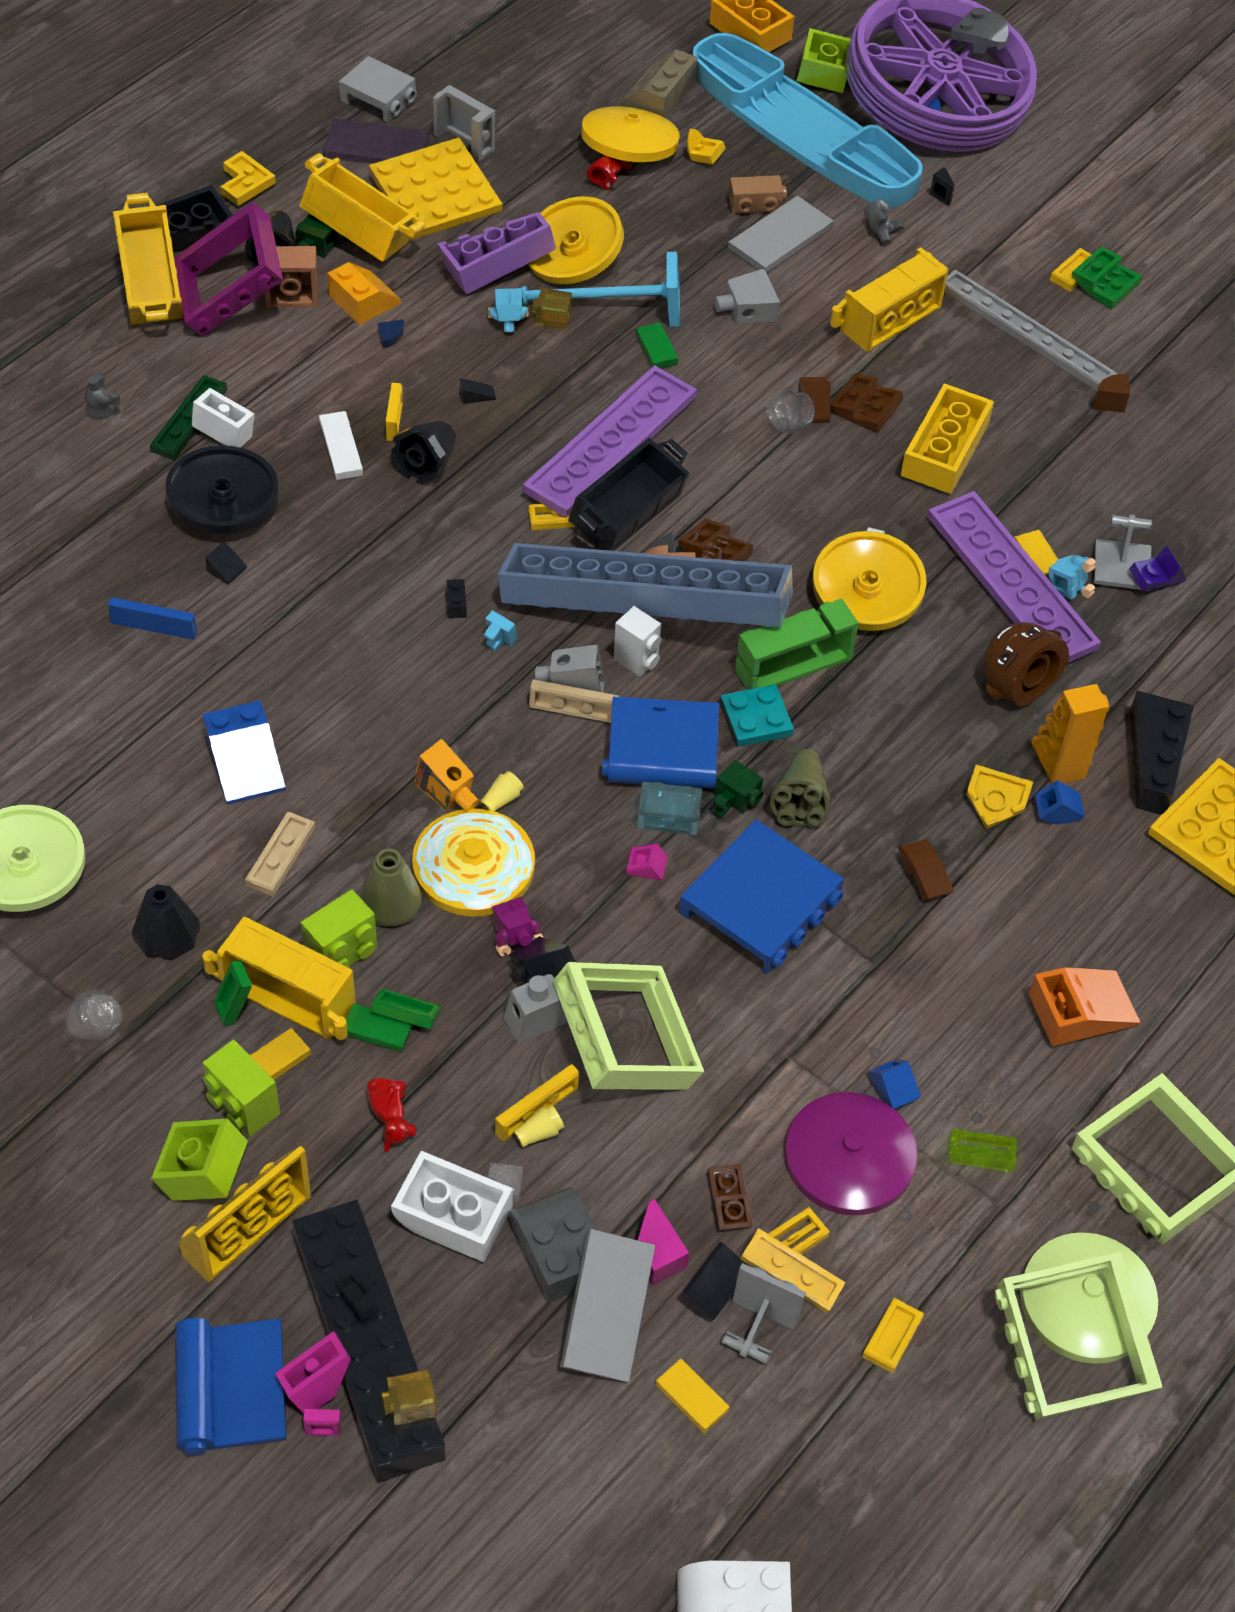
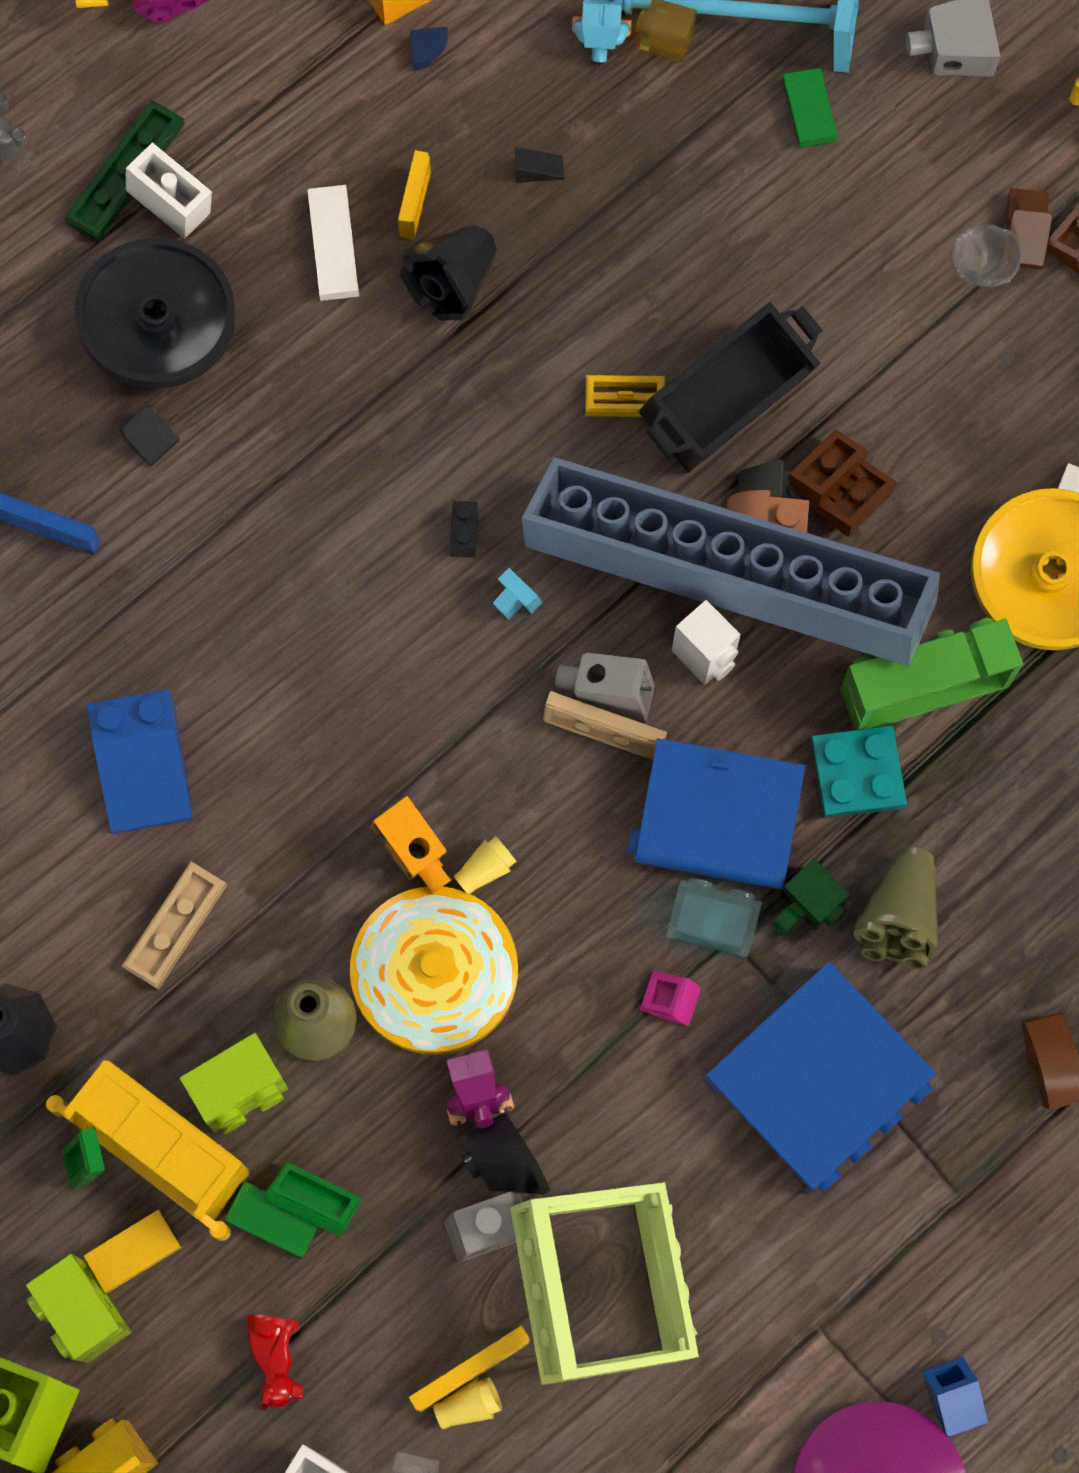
camera: 10 degrees right, 20 degrees up
(609, 438) = (717, 277): medium lavender plate -> none

